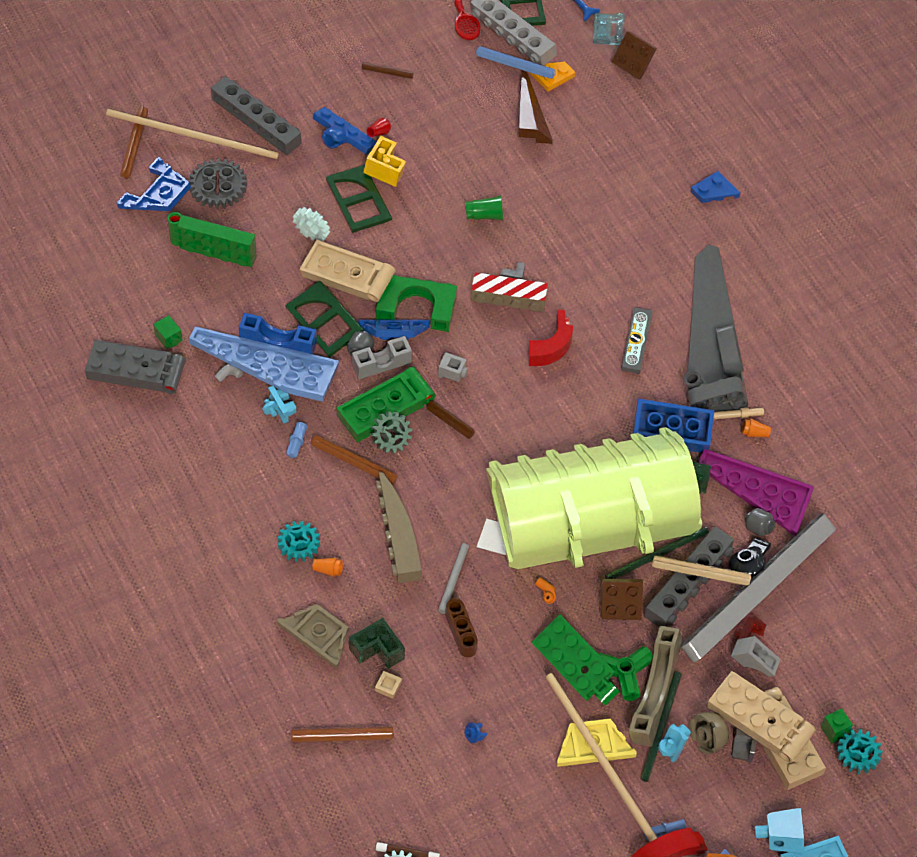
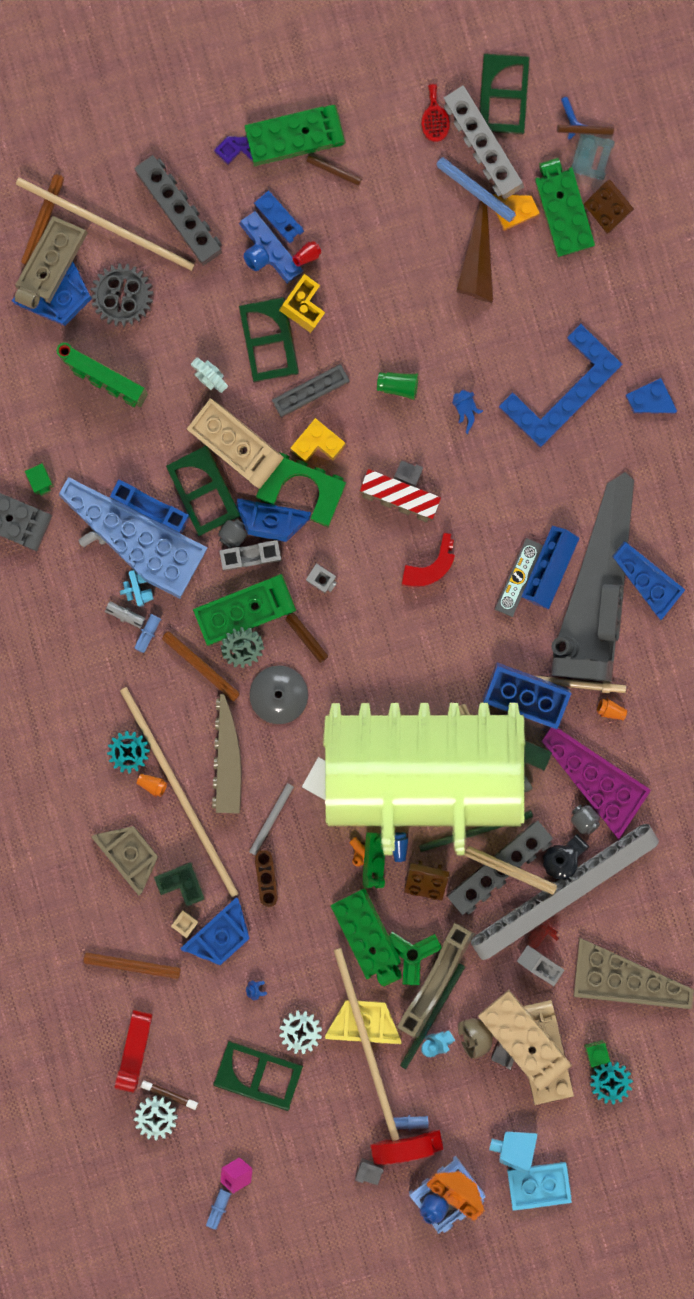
camera: 15 degrees right, 30 degrees up
(147, 165) = (51, 256): none -> dark tan hinge
(271, 429) = (125, 614): none -> light grey pin
(293, 68) = (232, 147): none -> dark purple tile
(346, 49) = (283, 136): none -> green hinge
(346, 109) = (278, 216): none -> blue plate
(359, 573) = (179, 792): none -> tan piece
(361, 812) = (134, 1051): none -> red beam
(406, 229) = (310, 390): none -> dark grey tile
(423, 260) = (317, 437): none -> yellow brick
(426, 690) = (220, 936): none -> blue wing
(431, 480) = (281, 709): none -> dark grey dish
(466, 826) = (227, 1079): none -> dark green window
(540, 758) = (310, 1034): none -> light aqua gear
(550, 217) = (465, 404): none -> blue piece
(565, 593) = (373, 861): none -> green plate
(586, 578) = (401, 845): none -> blue cone
(597, 9) = (585, 129): none -> reddish brown bar
(597, 71) = (564, 216): none -> green hinge
(624, 226) = (543, 429): none -> blue plate
(663, 322) = (550, 567): none -> blue brick
(758, 320) = (652, 583): none -> blue wing
(838, 657) = (614, 978): none -> dark tan wing

